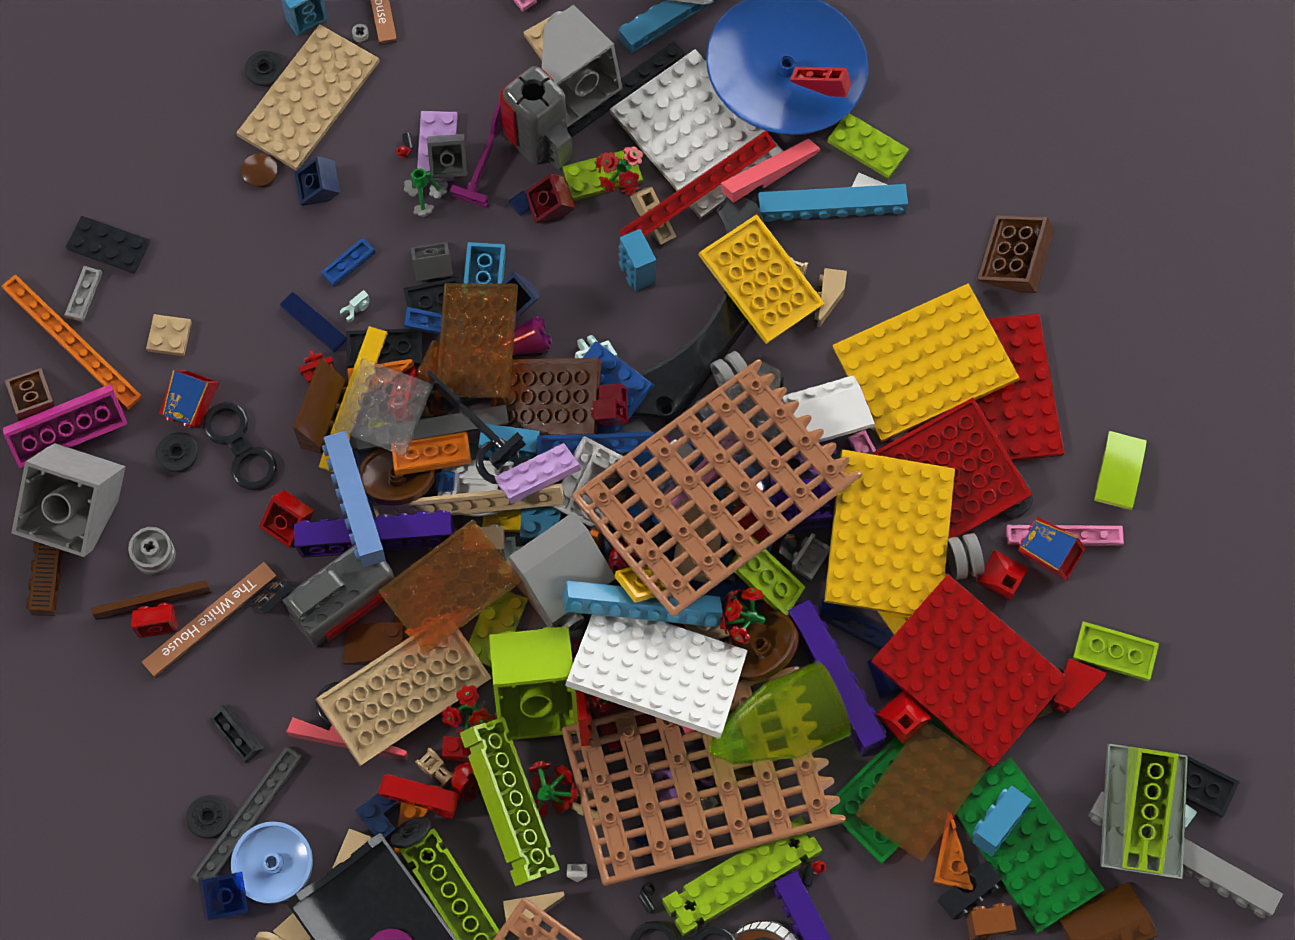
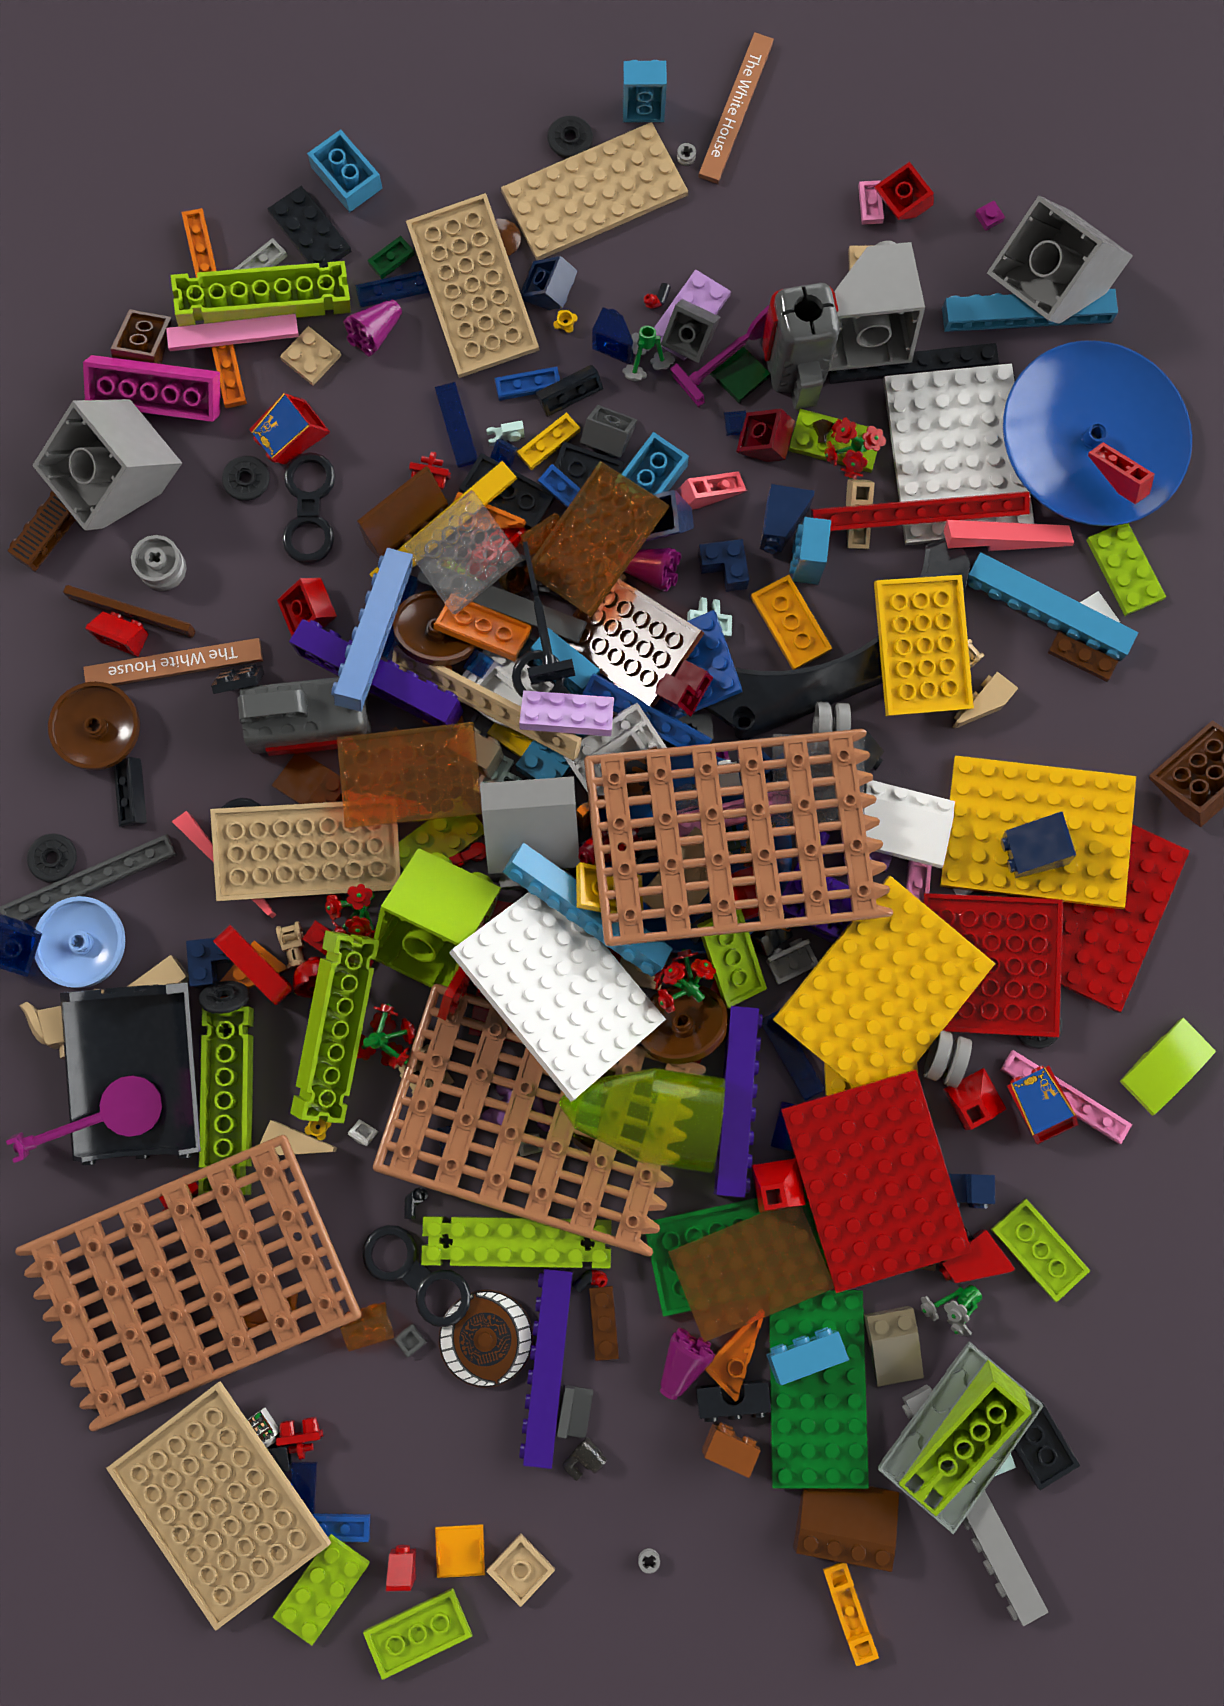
camera: 30 degrees right, 10 degrees up
(99, 351) = (232, 332): none -> bright pink tile
(105, 310) = (260, 293): none -> lime brick
(110, 186) = (345, 170): none -> dark azure brick
(179, 698) = (93, 725): none -> reddish brown dish
(185, 229) = (391, 257): none -> dark green plate
(204, 247) = (391, 288): none -> clear blue tile
(204, 287) = (372, 325): none -> magenta cone
(262, 214) = (472, 285): none -> tan plate
(347, 197) = (565, 315): none -> yellow plate
(363, 320) = (504, 452): none -> clear blue plate
(383, 249) = (569, 390): none -> black slope
(391, 294) = (548, 441): none -> yellow plate
(393, 191) = (612, 336): none -> clear blue slope
(503, 167) = (740, 374): none -> dark green tile
(529, 619) = (476, 853): none -> red piece
(535, 259) = (711, 489): none -> coral slope
(540, 882) = (319, 1133): none -> yellow plate
(579, 301) = (725, 557): none -> dark blue brick
(588, 170) = (822, 429): none -> dark brown rock
(599, 248) = (783, 513): none -> dark blue slope
(654, 320) = (791, 622): none -> light orange plate
(842, 896) = (604, 1323): none -> reddish brown plate
(877, 224) = (1082, 656): none -> reddish brown plate
(918, 886) = (684, 1363): none -> magenta cone
(932, 369) = (1038, 845): none -> dark blue slope
(1043, 634) = (973, 1189): none -> dark blue brick
(1058, 781) = (894, 1345): none -> dark tan slope
(1085, 722) = (957, 1314): none -> plant

